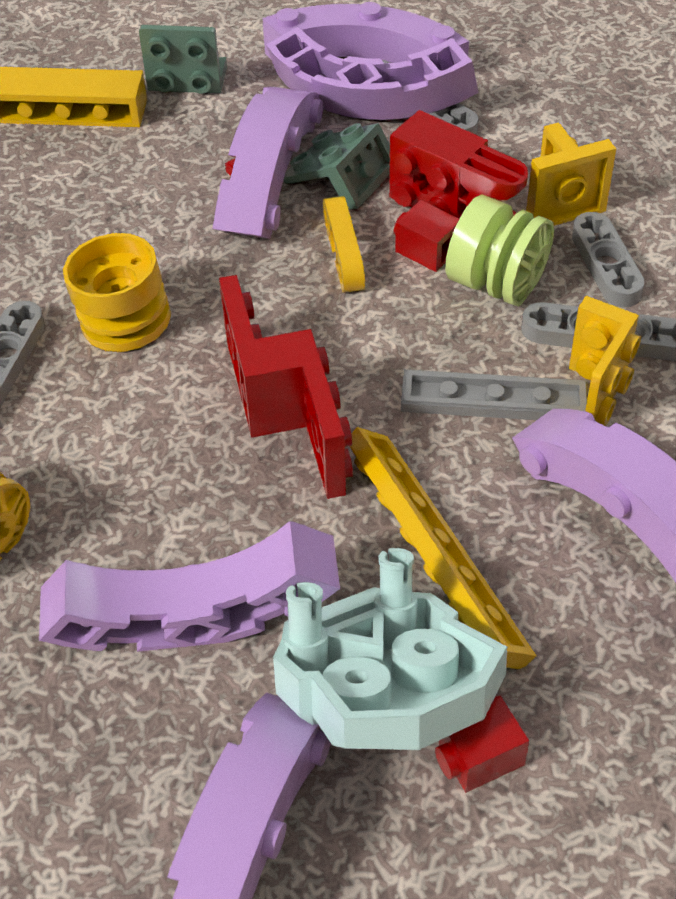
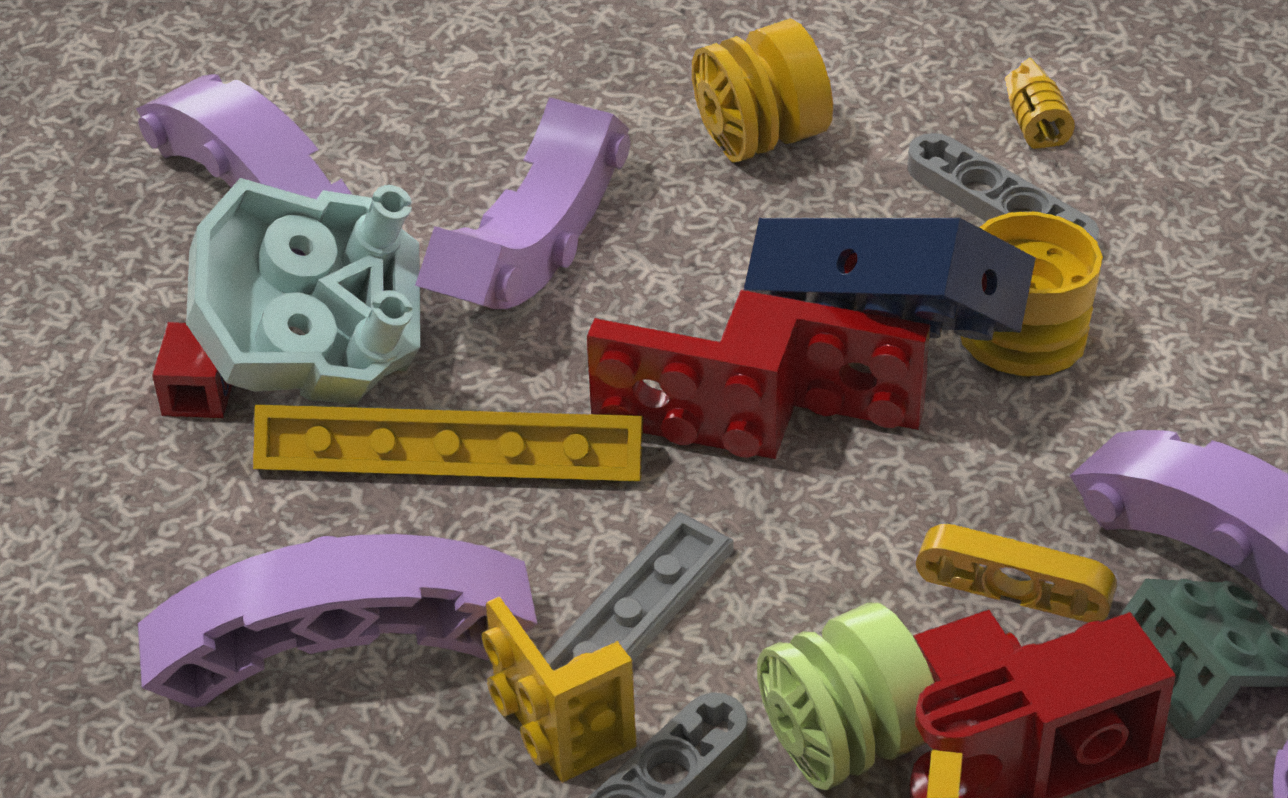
camera: 120 degrees right, 5 degrees down
(180, 317) = (896, 268): none -> dark blue brick

